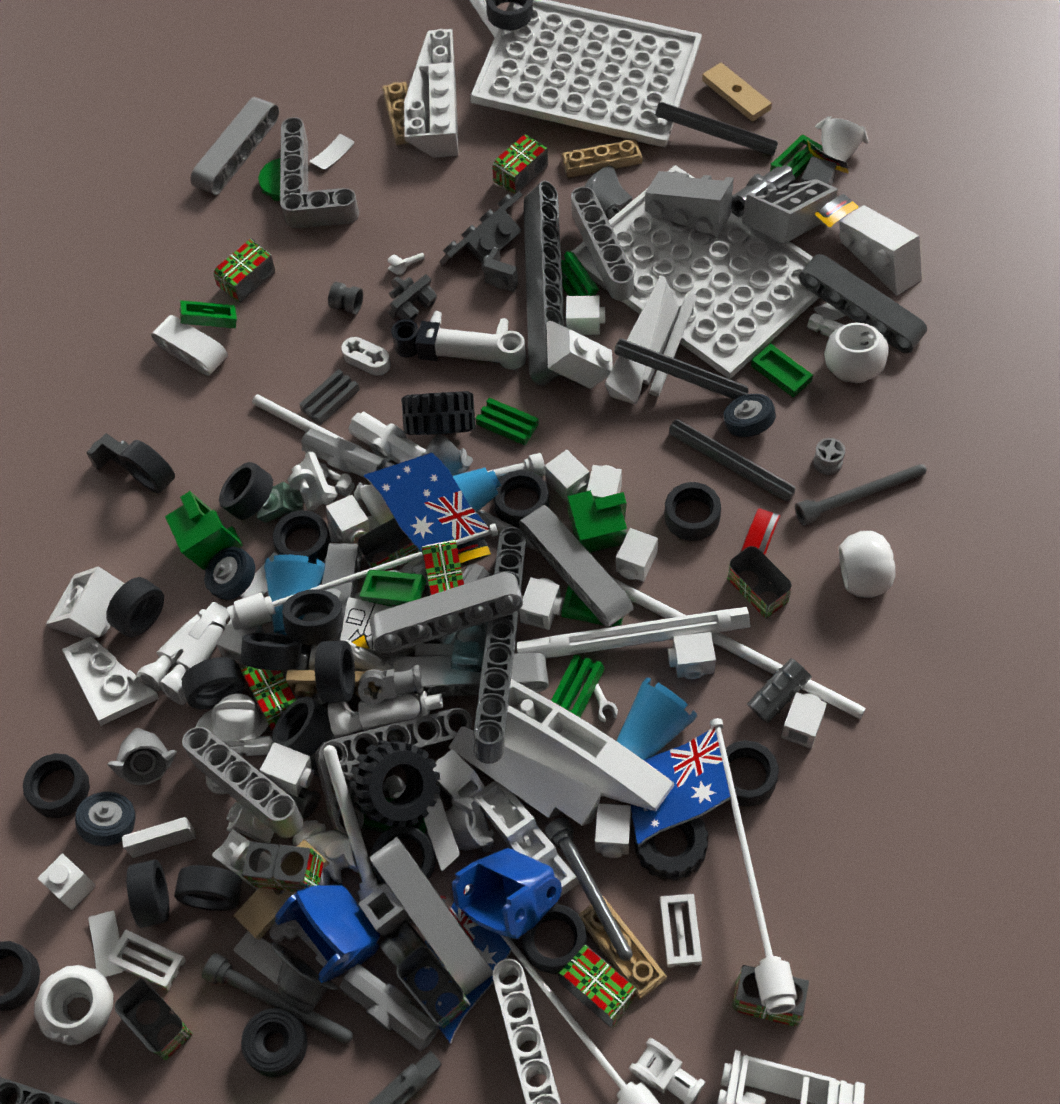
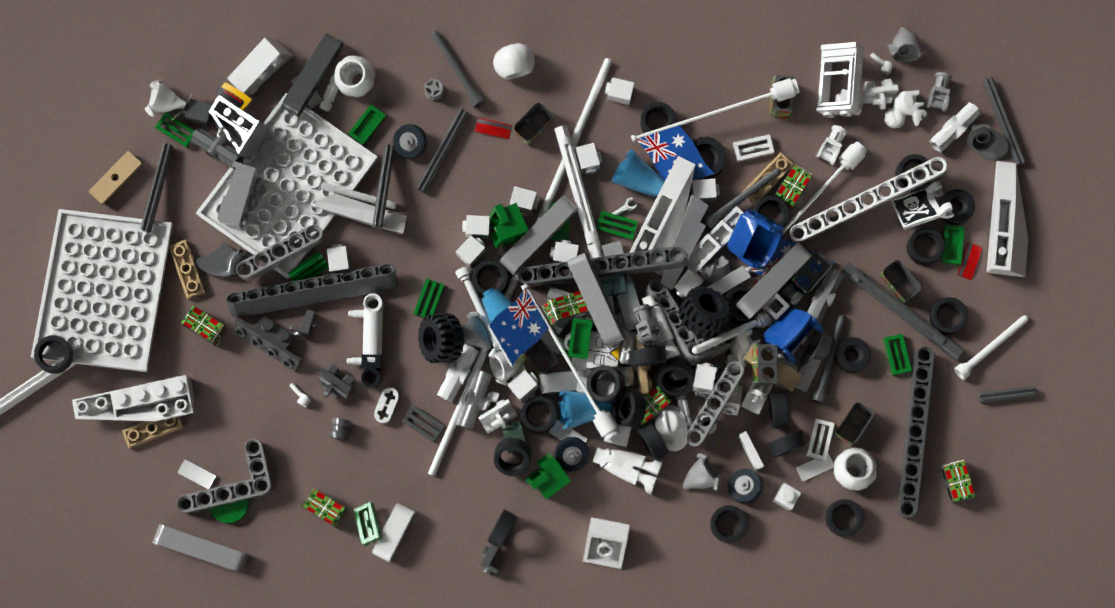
camera: 105 degrees left, 20 degrees up
(105, 682) = (656, 515): white wing -> none
(135, 607) = (607, 505): black tyre -> none
(577, 356) = (376, 256): white slope -> none
(698, 492) = (490, 156): black tyre -> none
(779, 690) = (605, 106): dark grey axle -> none

